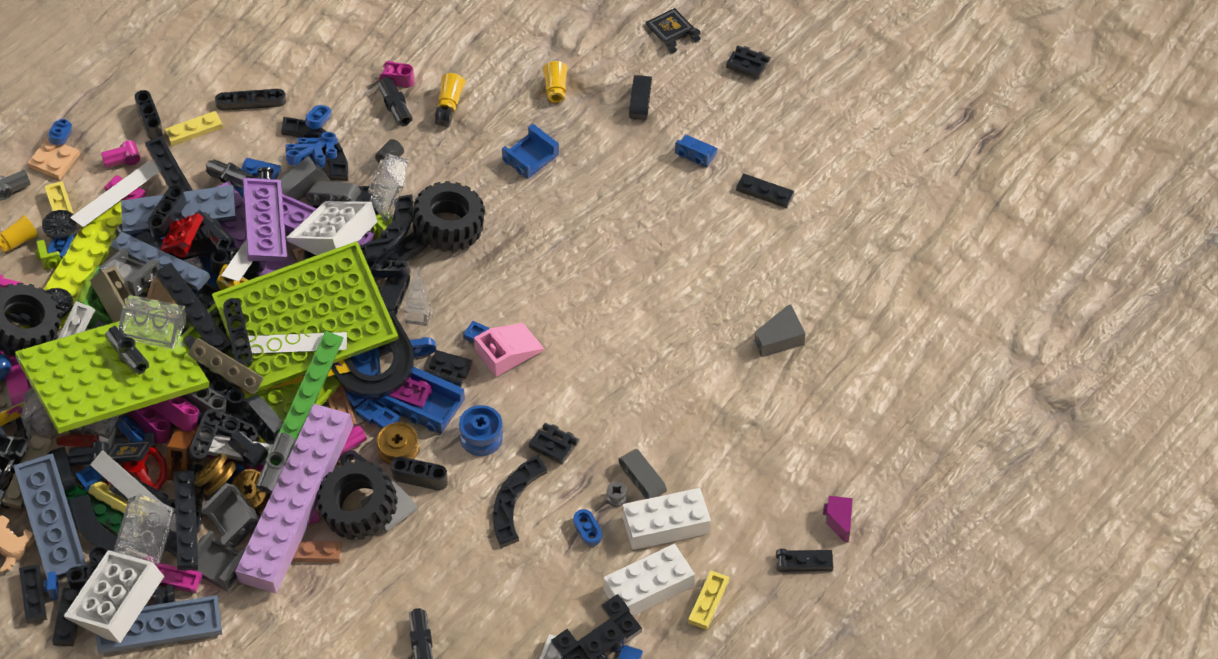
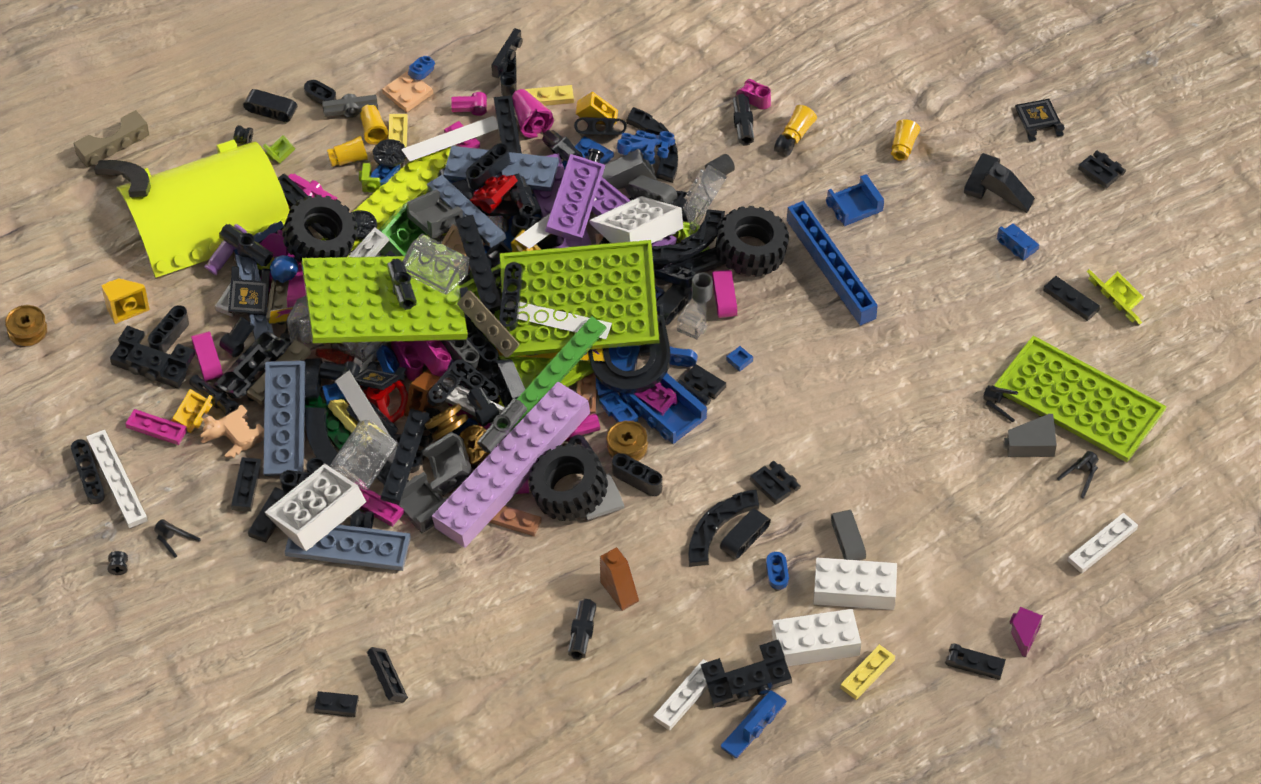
camera: 20 degrees right, 0 degrees up
(32, 201) = (373, 125): none -> yellow plant
(51, 585) = (265, 482): blue plate -> none
(111, 291) = (410, 224): dark tan brick -> none
(143, 96) = (506, 53): none -> black plate
(187, 149) = (531, 114): none -> dark pink cone
(248, 129) = (596, 107): none -> yellow slope
(250, 97) = (609, 80): black beam -> none
(268, 143) = (591, 129): none -> black beam
(318, 117) = (664, 115): blue plate -> none
(418, 274) = (702, 287): none -> dark grey piece
(439, 274) = (724, 293): none -> dark pink beam
(439, 580) = (617, 578): none -> dark orange slope
(481, 430) = (709, 451): blue wheel -> none
(506, 347) = (763, 379): bright pink slope -> none
(531, 217) = (832, 263): none -> blue brick
(544, 500) = (745, 533): none -> black beam
(616, 499) = (814, 551): flat silver wheel -> none
(668, 100) = (1007, 186): none -> black slope
(728, 301) = (994, 395): none -> black plant
(808, 172) = (1122, 293): none -> neon yellow bracket
(808, 280) = (1081, 398): none -> lime plate
(837, 342) = (1086, 463): none -> black plant
(879, 413) = (1102, 543): none -> white plate

